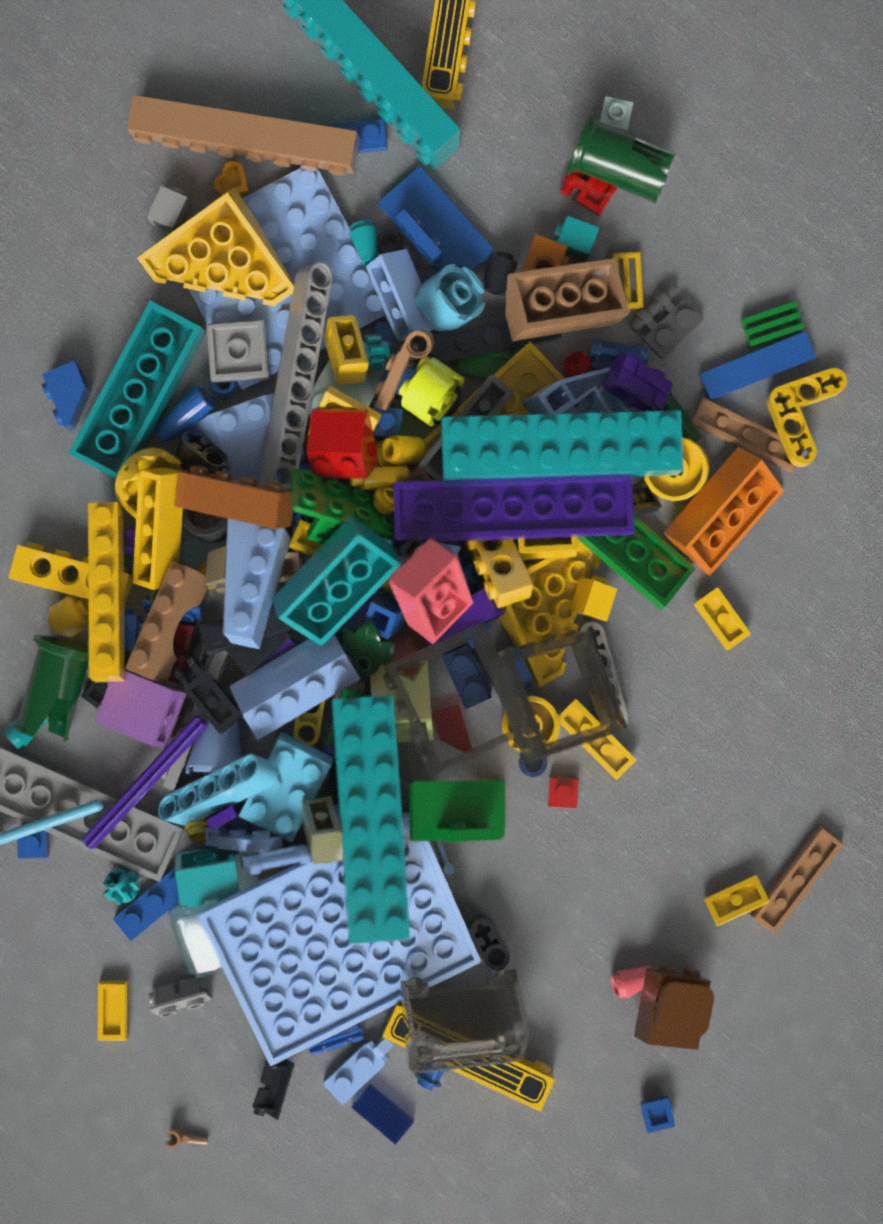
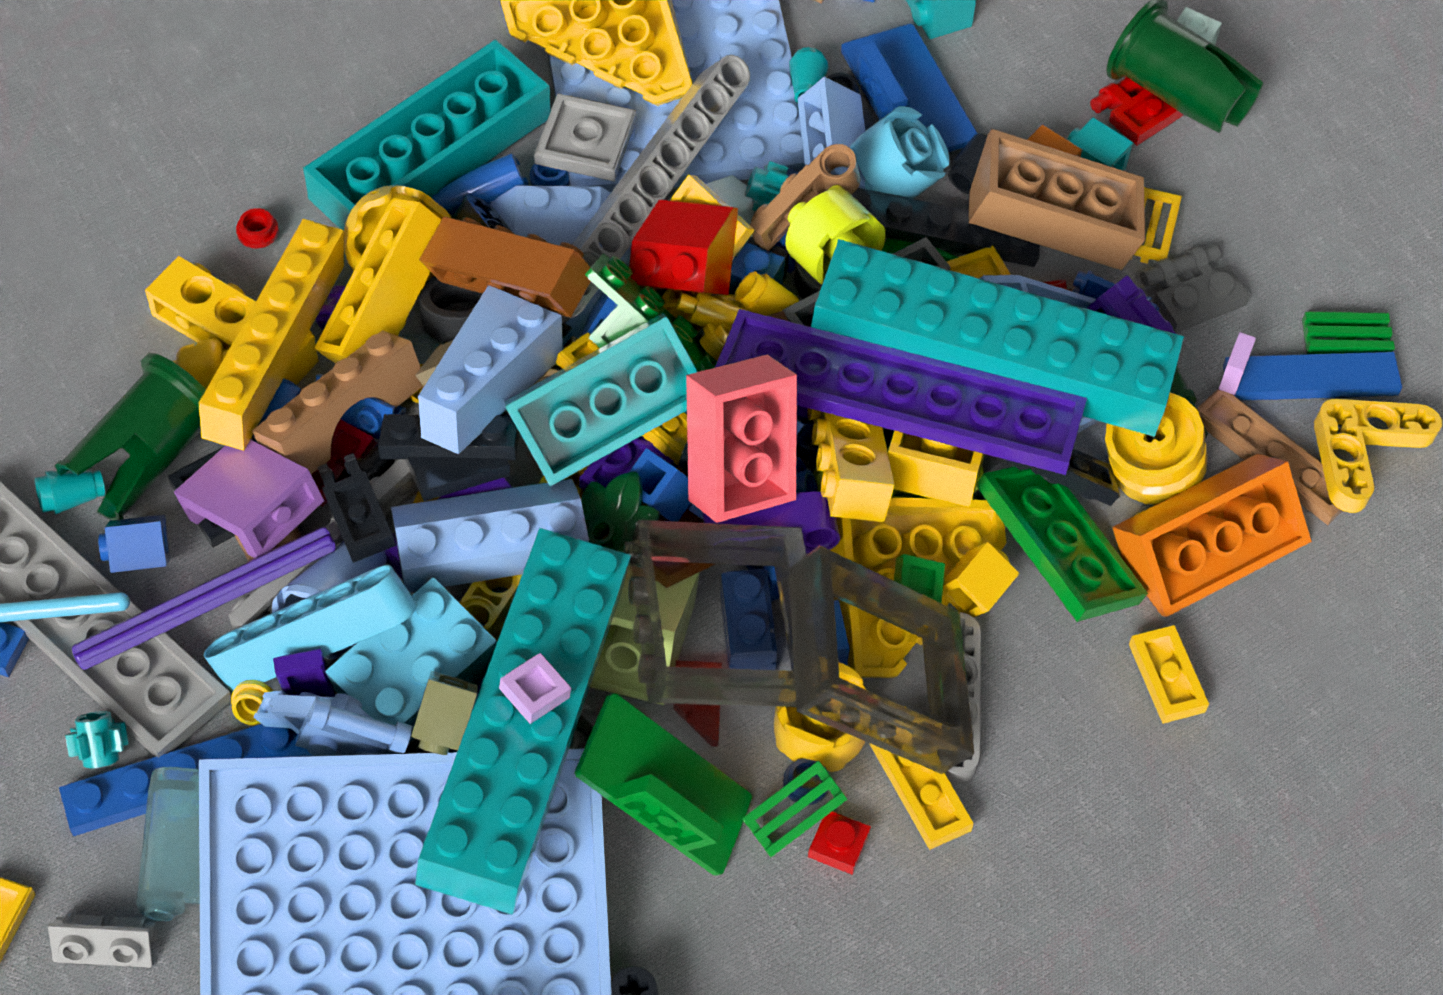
camera: 20 degrees right, 30 degrees down
(45, 493) = (255, 220): none -> red plate
(69, 393) = (336, 114): blue slope -> none
(85, 754) = (135, 543): none -> brick
(206, 875) = (234, 730): teal brick -> none
(346, 350) = (735, 163): yellow brick -> none
(375, 820) = (535, 688): none -> lavender plate
(448, 868) = (614, 893): light blue hinge -> none
(522, 805) = (762, 833): none -> tile
(559, 618) = (920, 575): none -> green plate
(710, 384) = (1237, 363): none -> lavender tile

